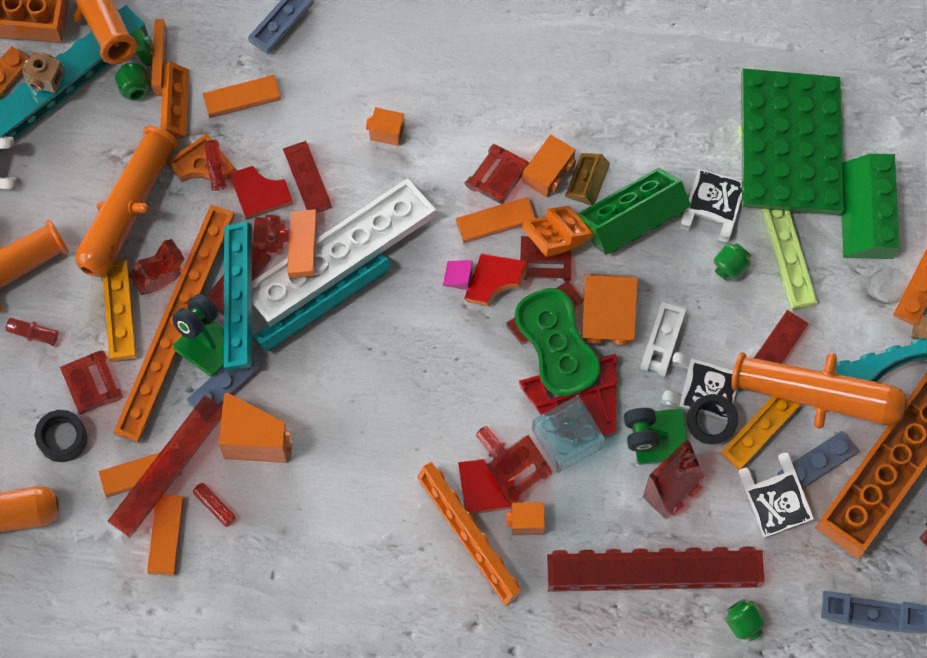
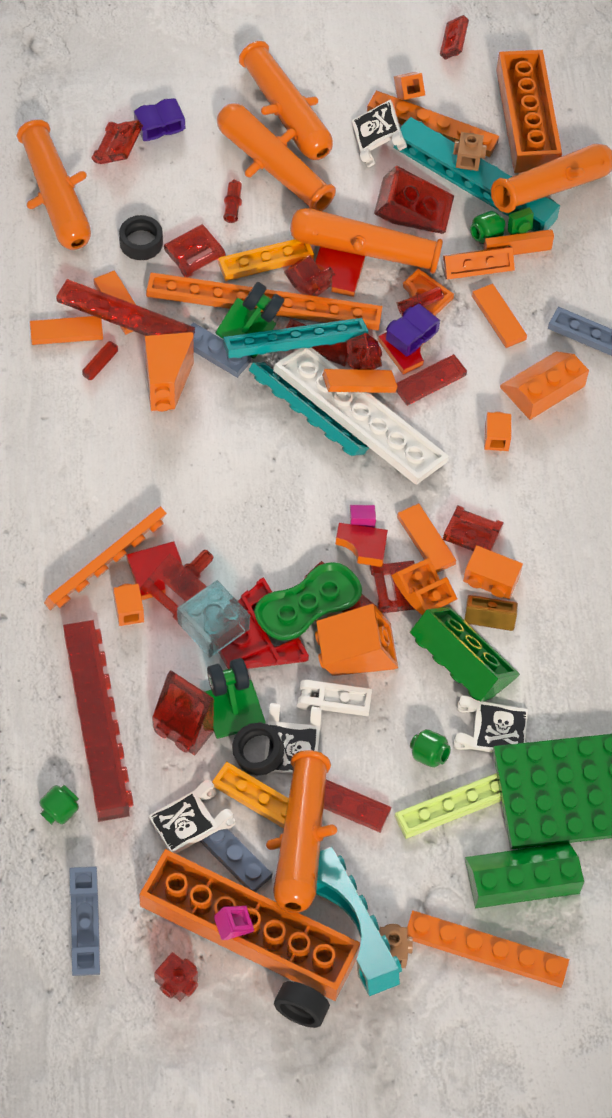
camera: 75 degrees right, 10 degrees down
(80, 148) = (413, 202): none -> clear red slope
(148, 236) = (346, 267): none -> red tile
(251, 179) = (412, 329): none -> dark purple brick
(334, 70) = (546, 383): none -> orange slope
(906, 468) = (233, 922): none -> dark pink slope

